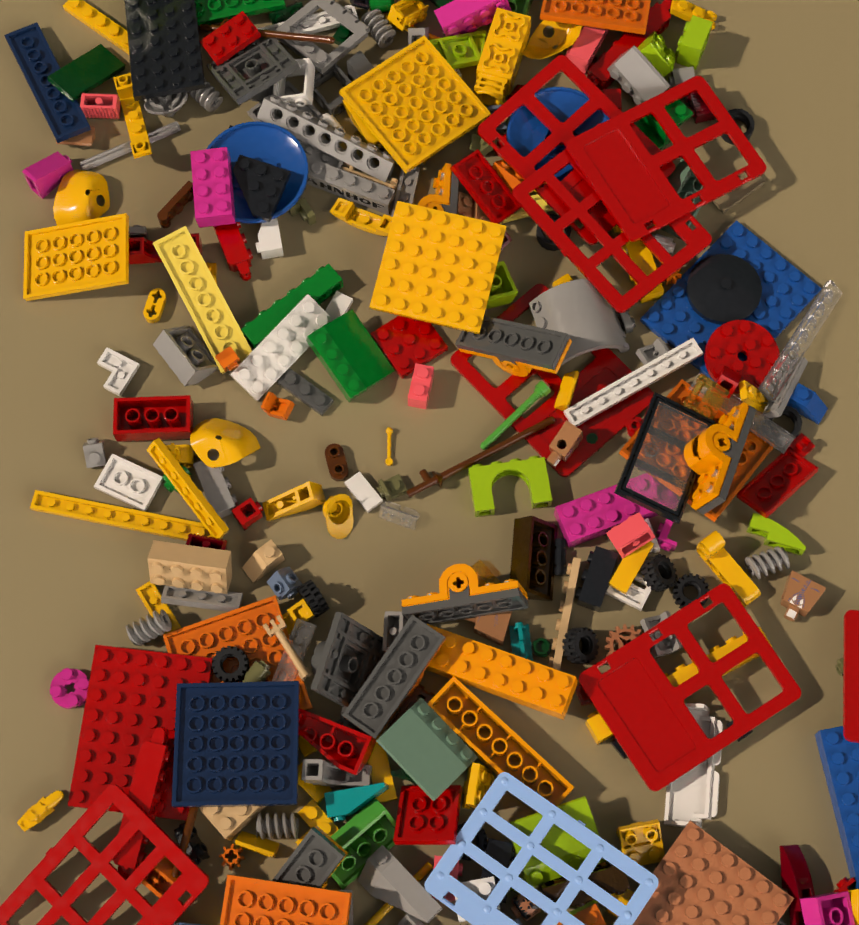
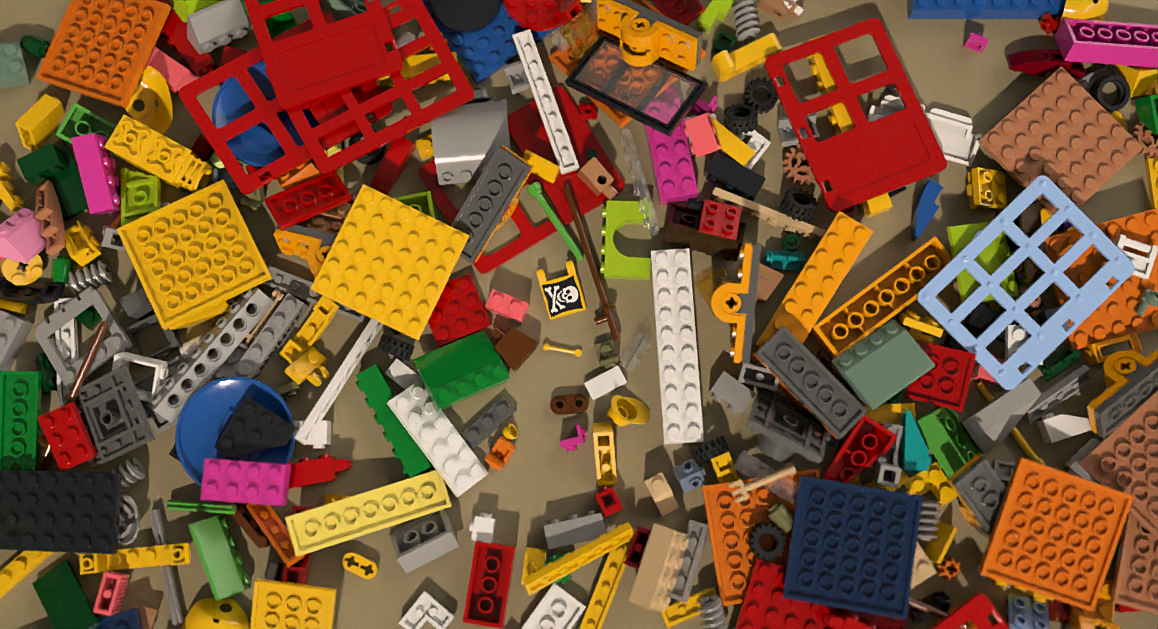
camera: 75 degrees left, 10 degrees up
(144, 184) = (220, 557): none -> bright green slope
(183, 217) = (274, 531): none -> orange plate
(186, 160) = (201, 506): none -> bright green axle
(204, 404) = (483, 528): none -> white brick
(228, 359) = (442, 495): orange bracket -> none
(235, 442) = (529, 499): yellow piece -> none
(297, 469) = (572, 443): none -> dark pink bracket
(299, 417) = (510, 432): none -> yellow hinge
(317, 248) = (338, 381): none -> white tile
(331, 221) = (305, 367): none -> yellow hinge
(361, 293) = (395, 347): none -> black tyre
(374, 610) = (732, 393): none -> light grey brick
(382, 400) = (514, 346): none -> reddish brown torso
(411, 550) = (676, 347): none -> white brick
(444, 437) = (562, 294): none -> flag
(539, 258) = (392, 165): none -> red slope
(546, 567) = (720, 219): none -> red hinge
(561, 485) = (640, 187): none -> clear plate
(605, 778) = (924, 208): none -> blue slope
(738, 546) = (724, 42): none -> dark green plate
(804, 808) = (976, 42): none -> dark pink plate

